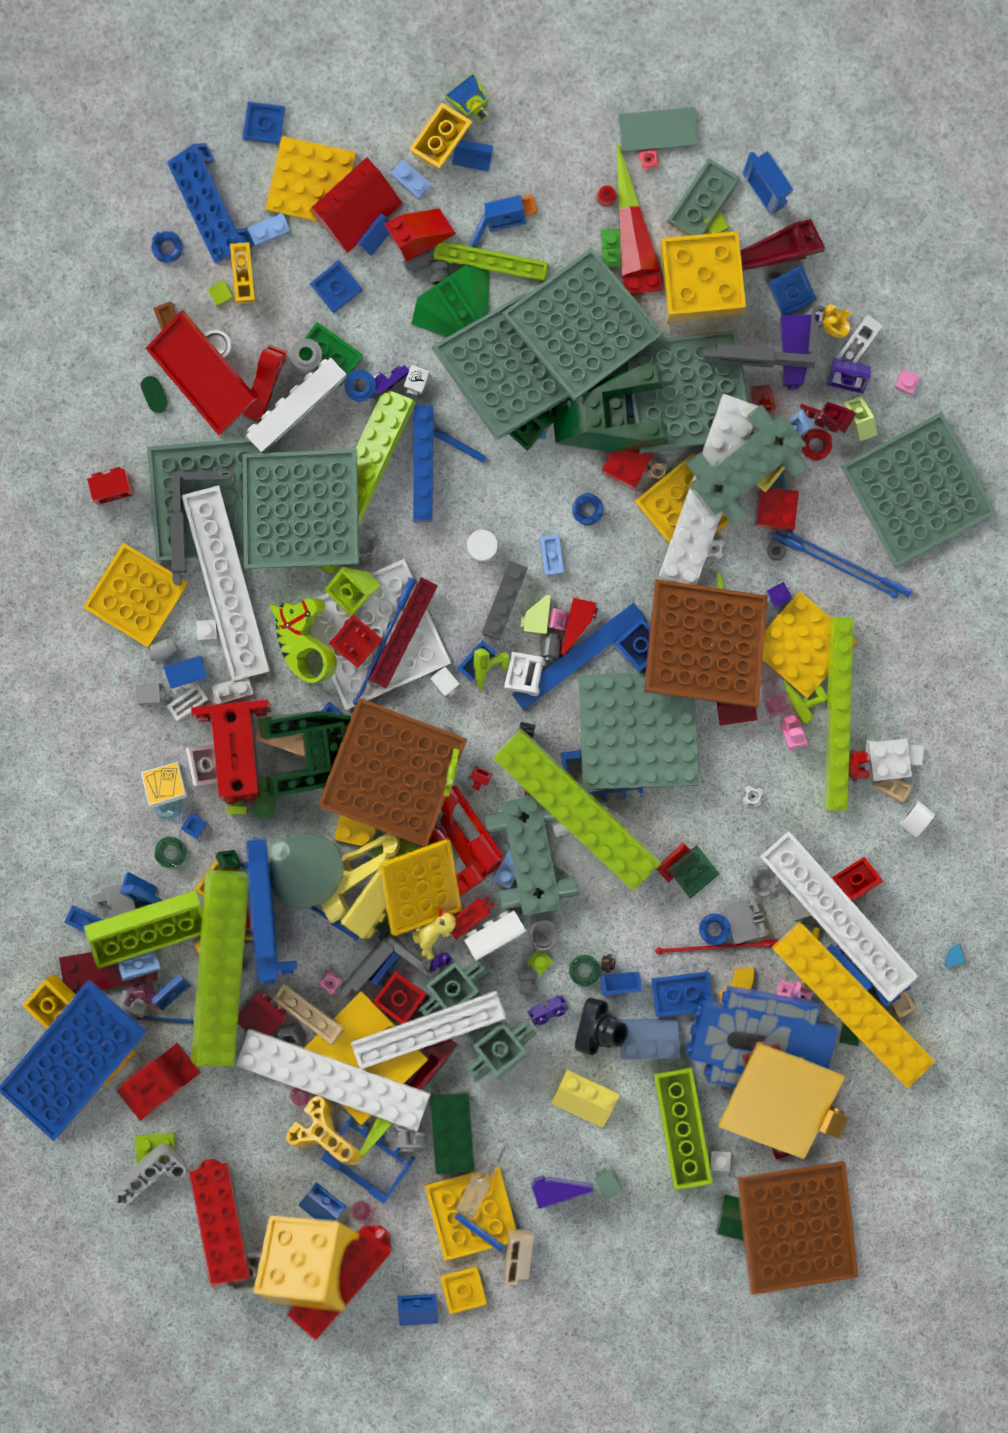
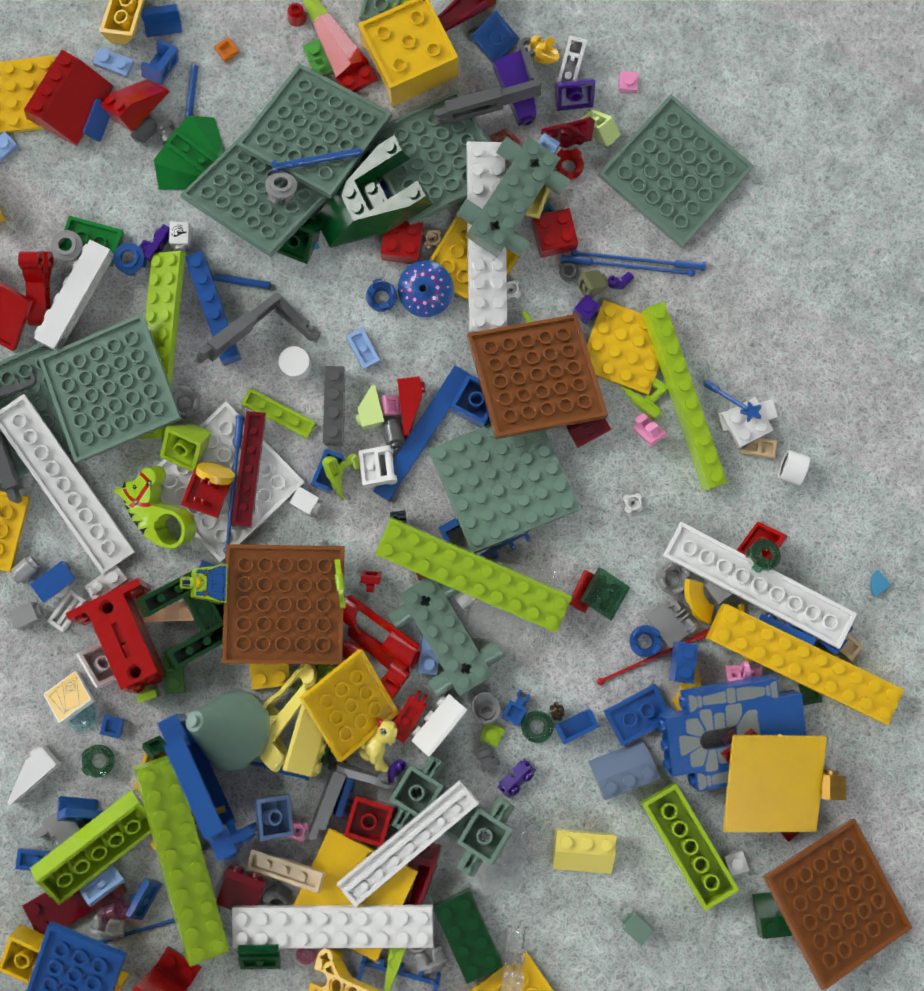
camera: 20 degrees left, 5 degrees down
(111, 839) = (34, 770): none -> white slope
(206, 630) = (62, 535): white plate -> none
(257, 1082) = (259, 956): none -> dark green plate
(315, 962) = (274, 817): none -> medium blue slope
(330, 728) = (207, 583): none -> torso
(336, 286) = (77, 179): blue tile -> none
(372, 626) = (216, 473): none -> yellow tile
(449, 587) = (279, 413): none -> lime tile
(453, 491) = (244, 324): none -> dark grey hinge
(457, 199) = (161, 64): none -> blue panel
(491, 261) = (211, 106): lime tile -> none
(505, 213) = (210, 61): blue panel -> none
(522, 379) = (281, 193): none -> light grey piece
(555, 1190) = (590, 954): dark purple slope -> none
(570, 949) = (516, 711): none -> blue plate
(572, 358) = (315, 159): none -> blue bar
(599, 1028) = (572, 778): black beam -> none
(645, 518) = (438, 291): none -> blue dish
(741, 961) = (683, 662): none -> blue brick
(773, 705) = (620, 410): clear pink hinge -> none
(777, 912) = (695, 596): none -> yellow tile
(794, 572) = (592, 283): none -> olive slope
(822, 580) = (620, 283): none -> dark purple arm
(844, 891) = (760, 563): none -> clear green piece
(856, 758) = (716, 434): red piece -> none
(894, 750) = (749, 410): none -> blue piece

